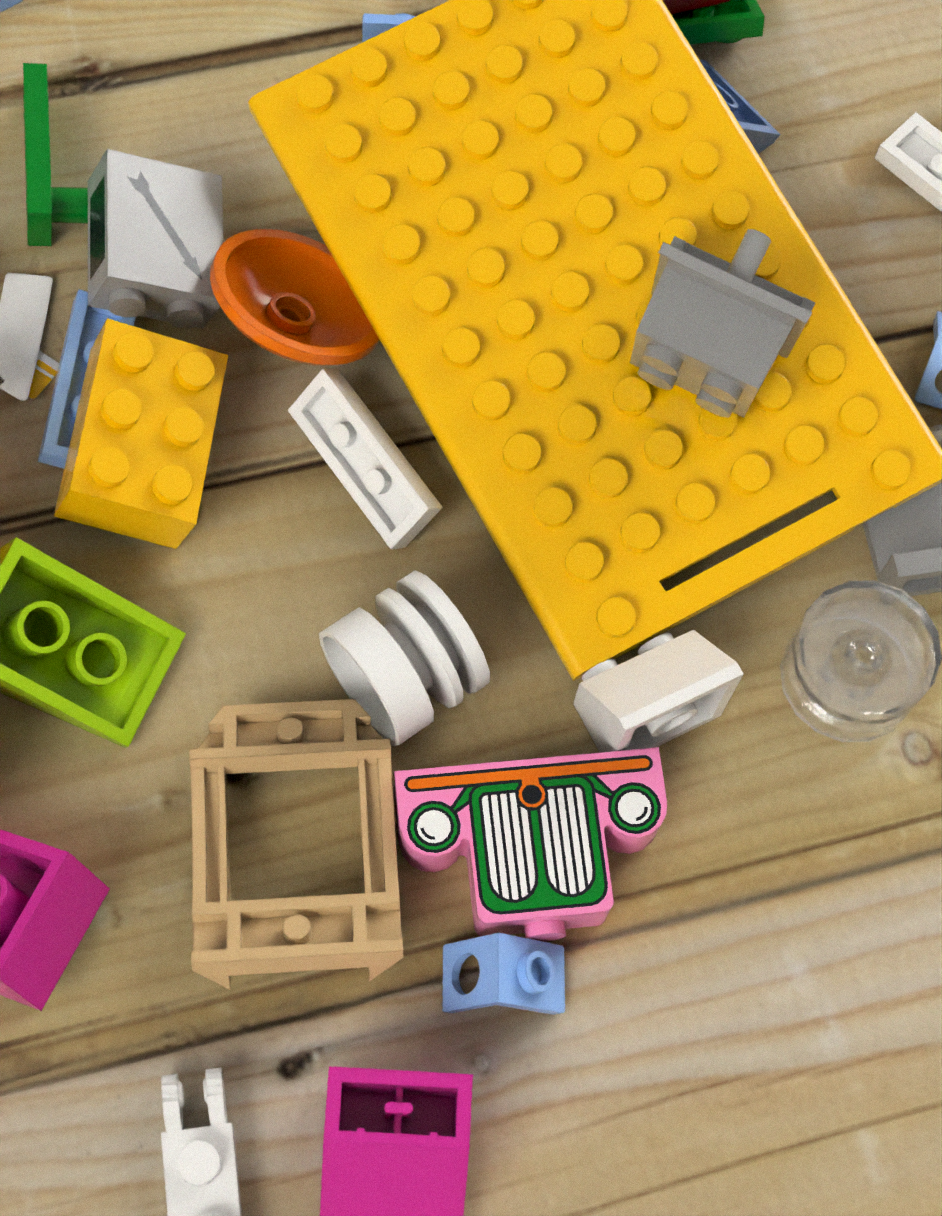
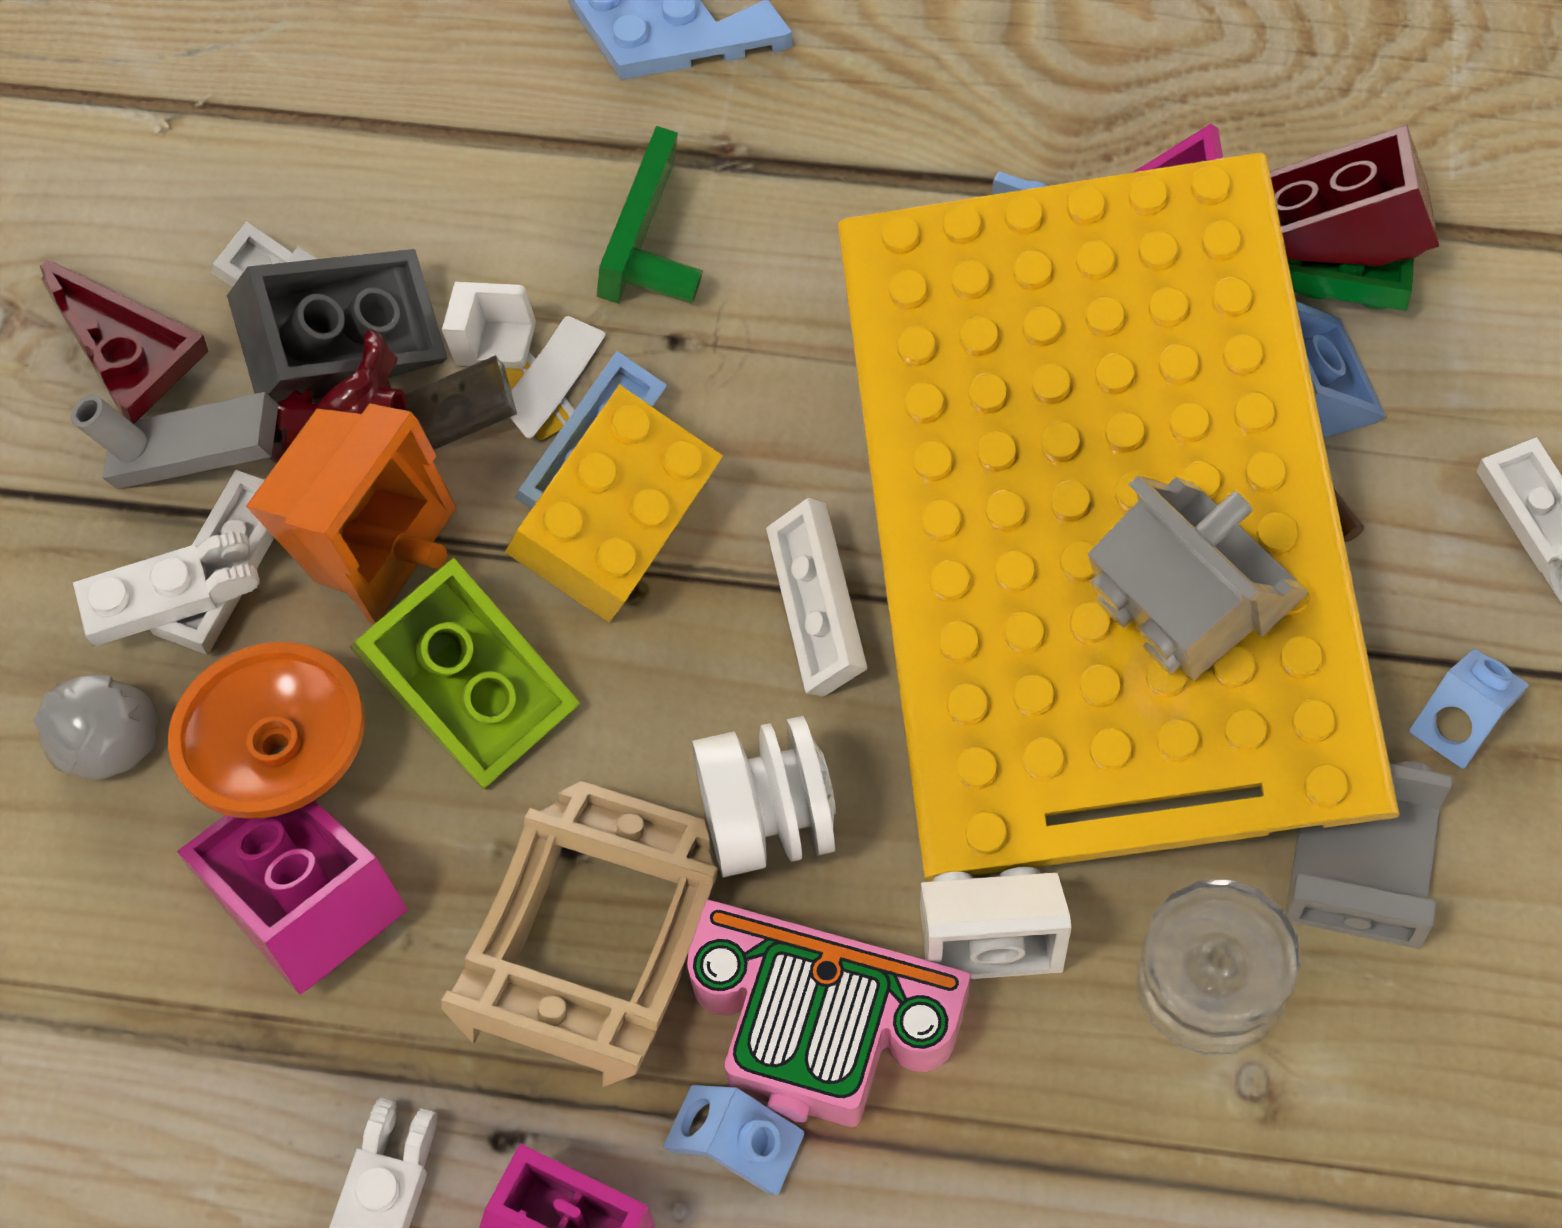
camera: 35 degrees right, 5 degrees down
(153, 239) = (706, 328): brick -> none
(290, 298) = (804, 421): orange dish -> none

